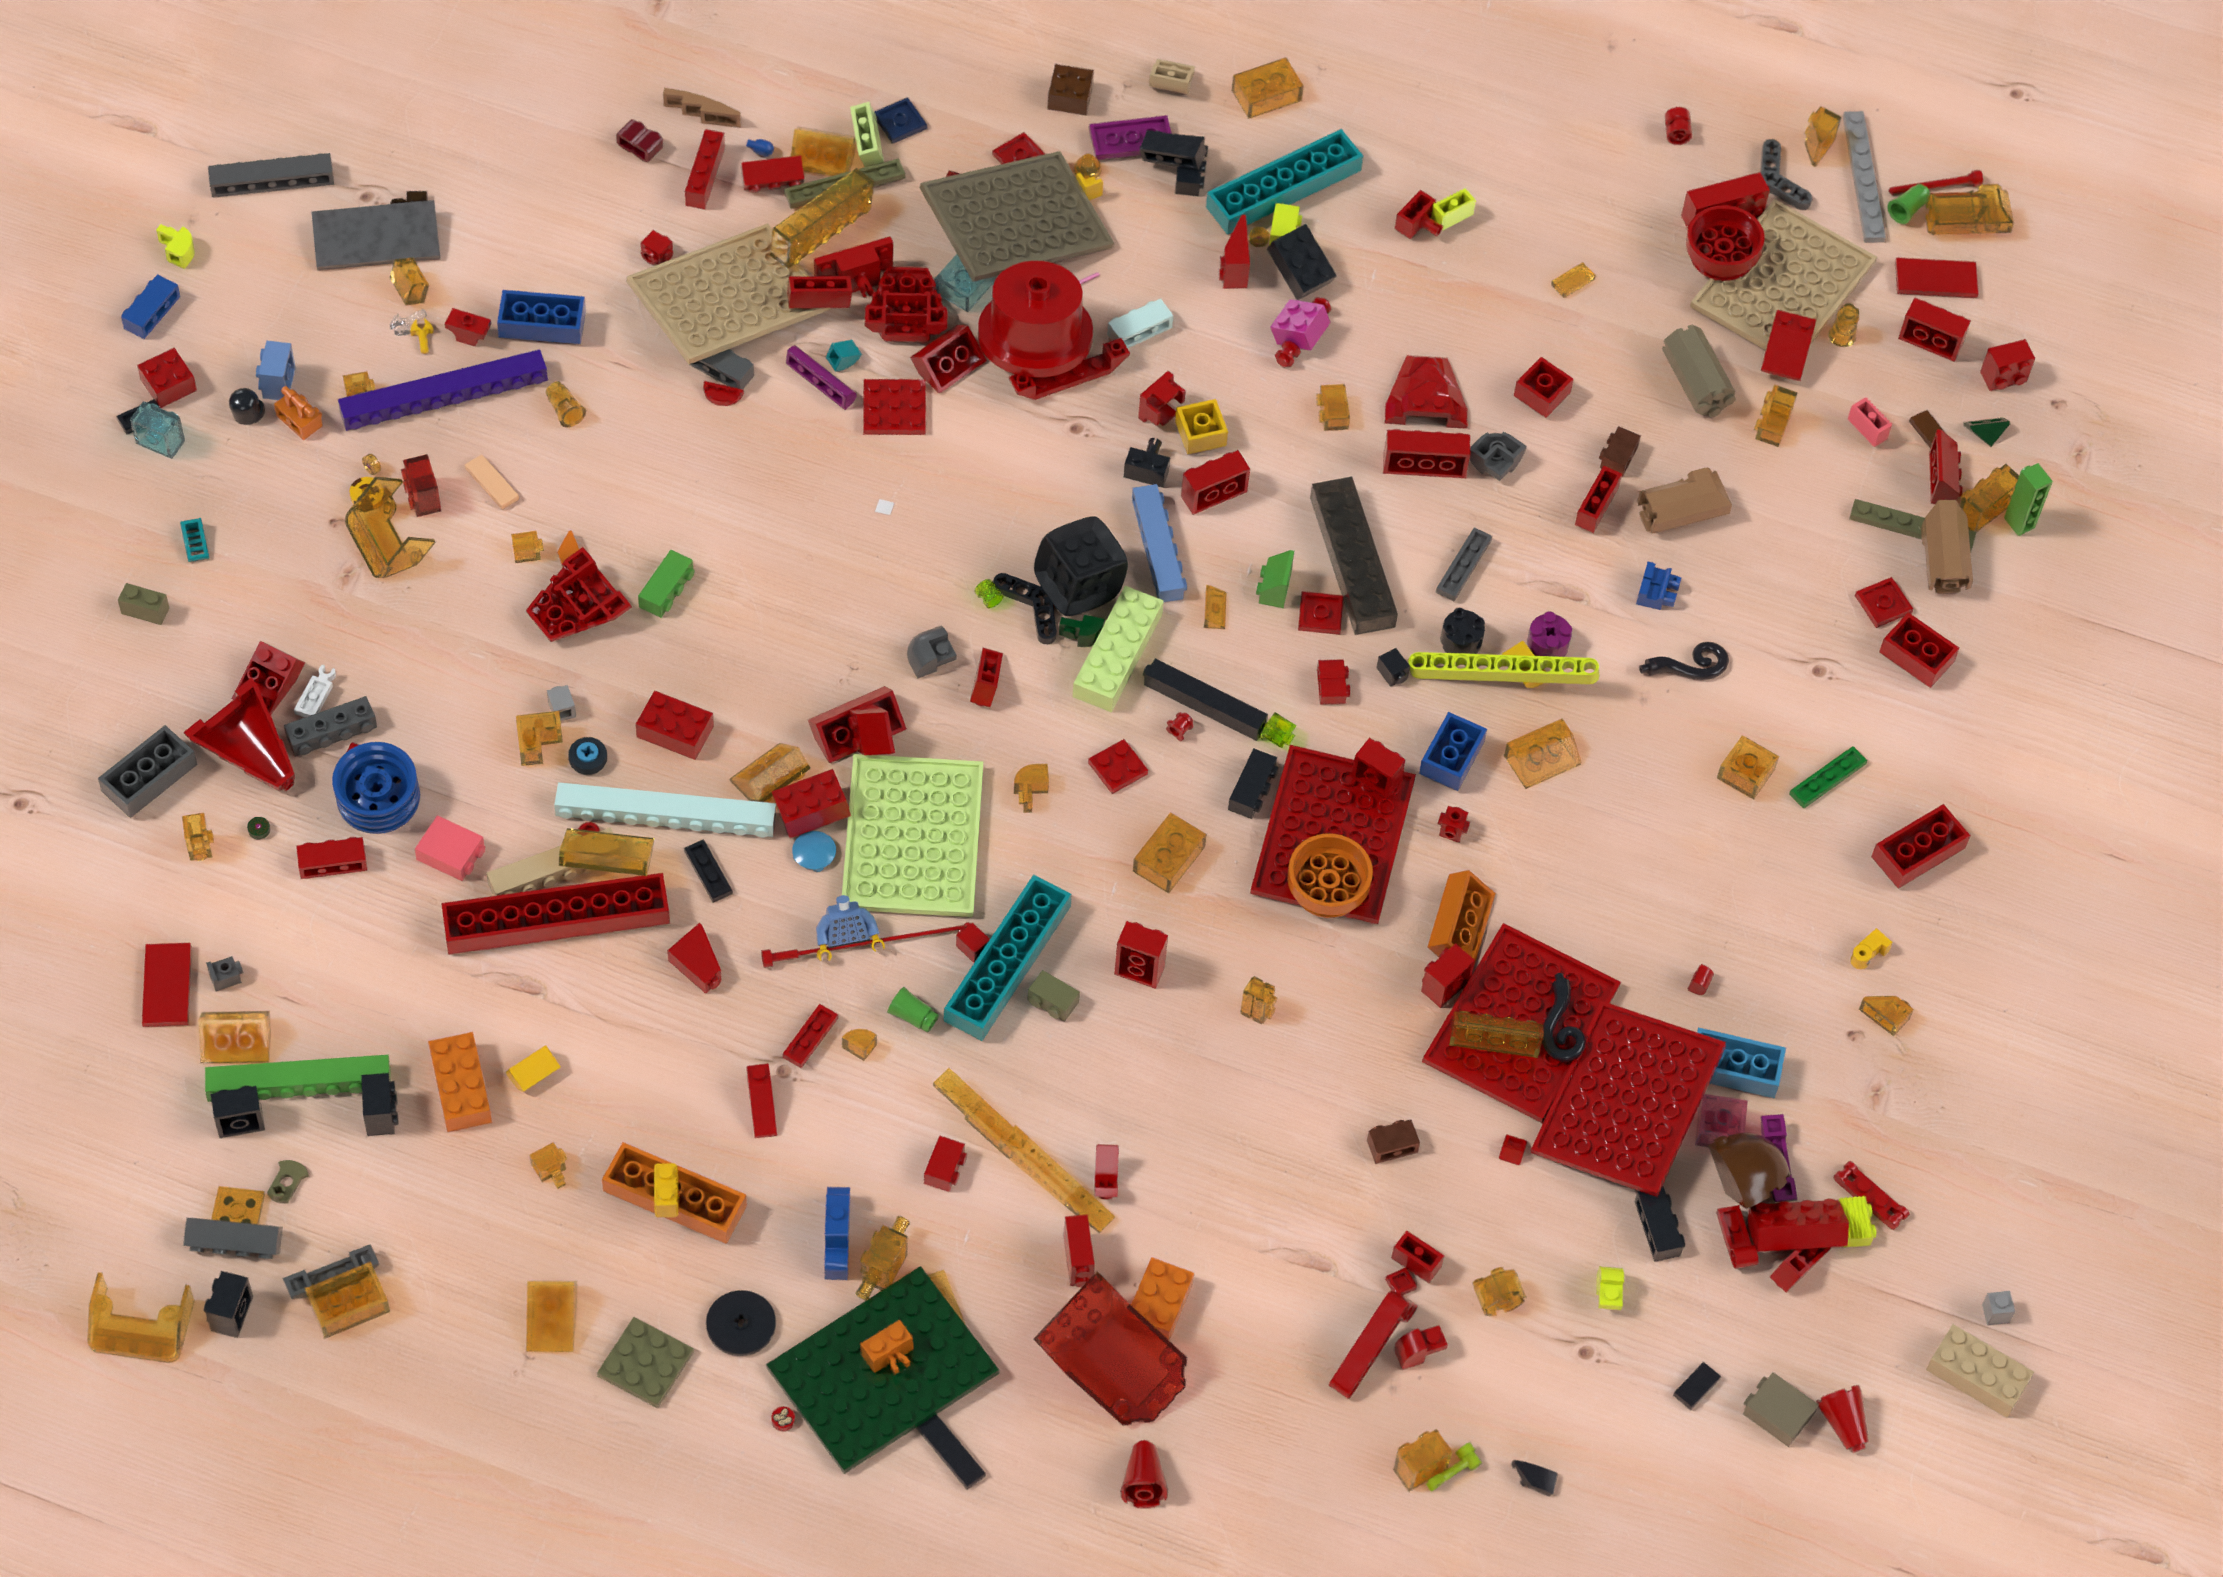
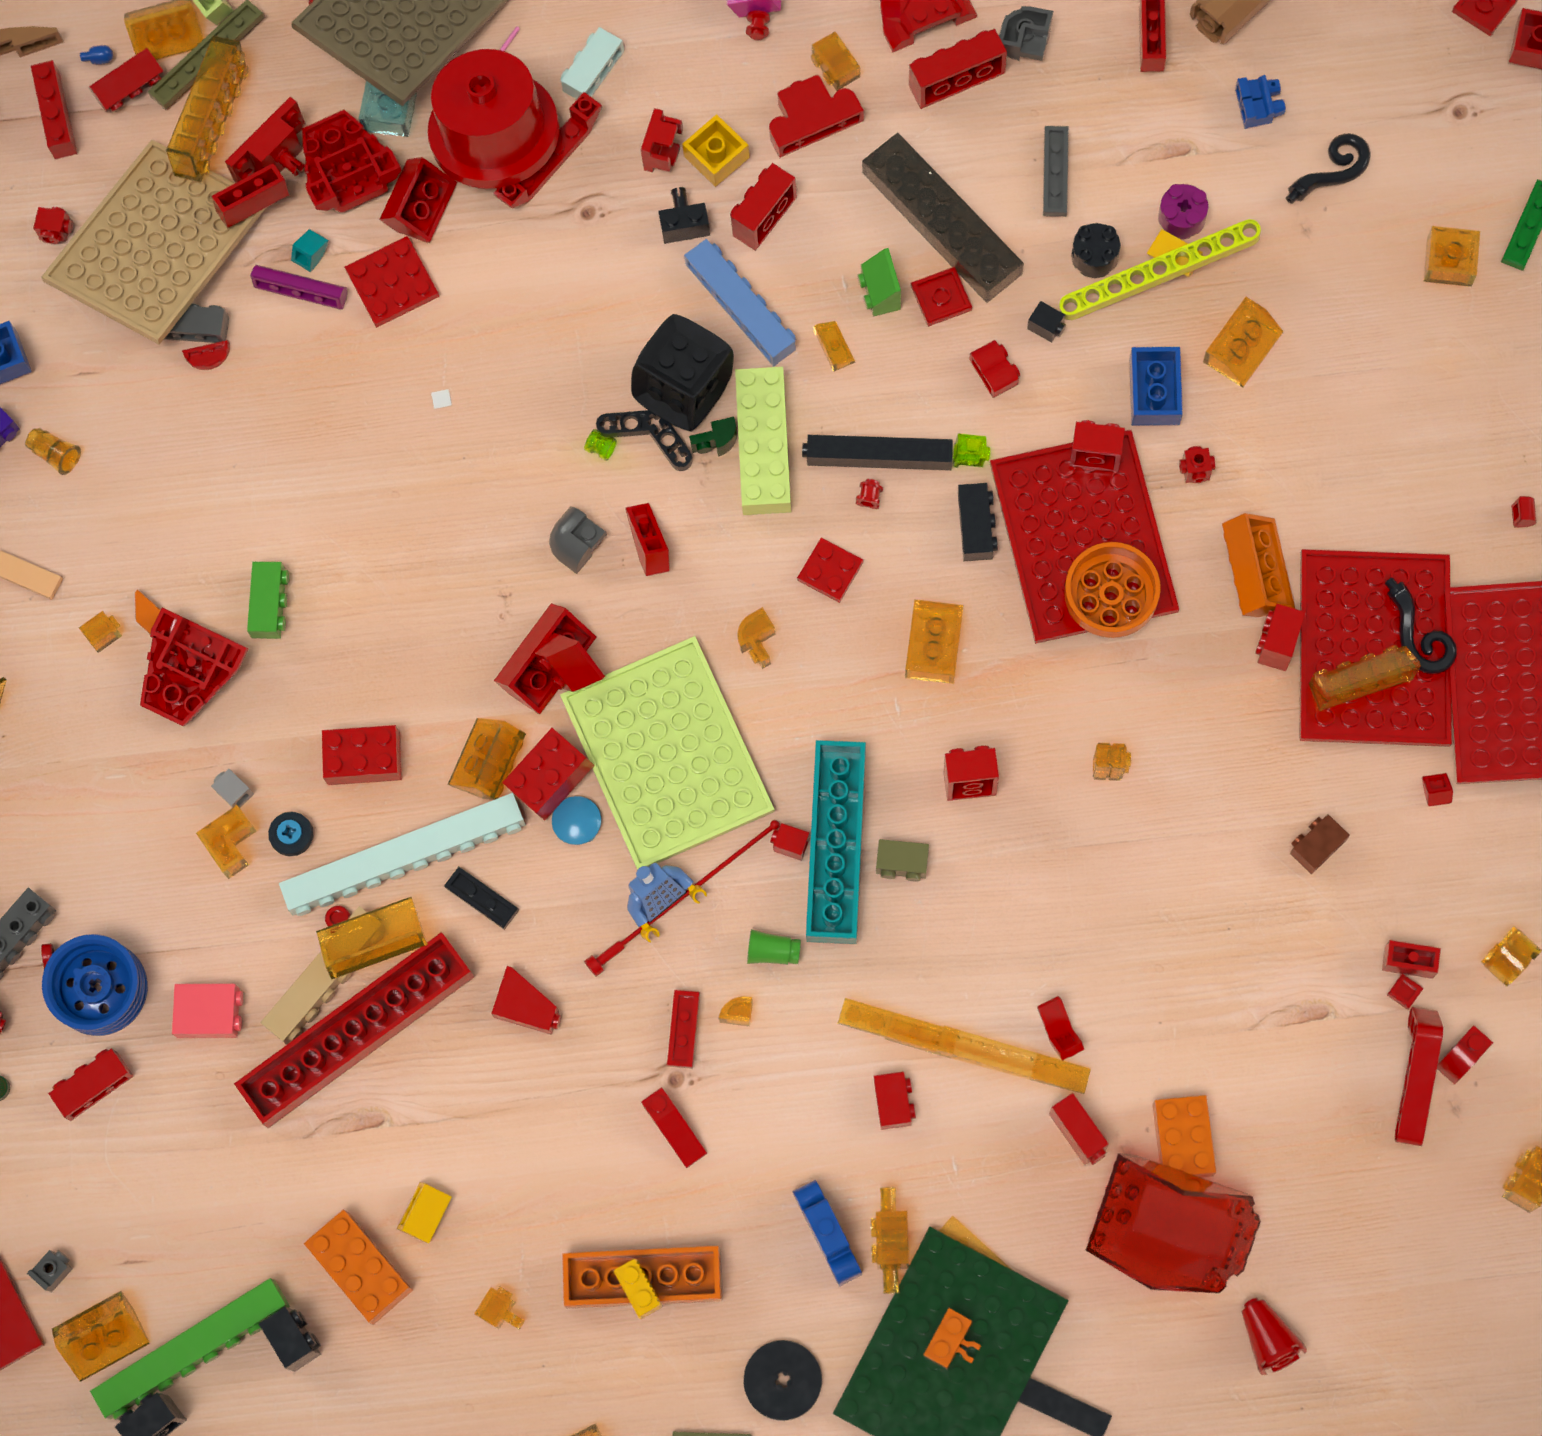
camera: 15 degrees left, 15 degrees up
(1292, 437) = (811, 114): none -> red brick

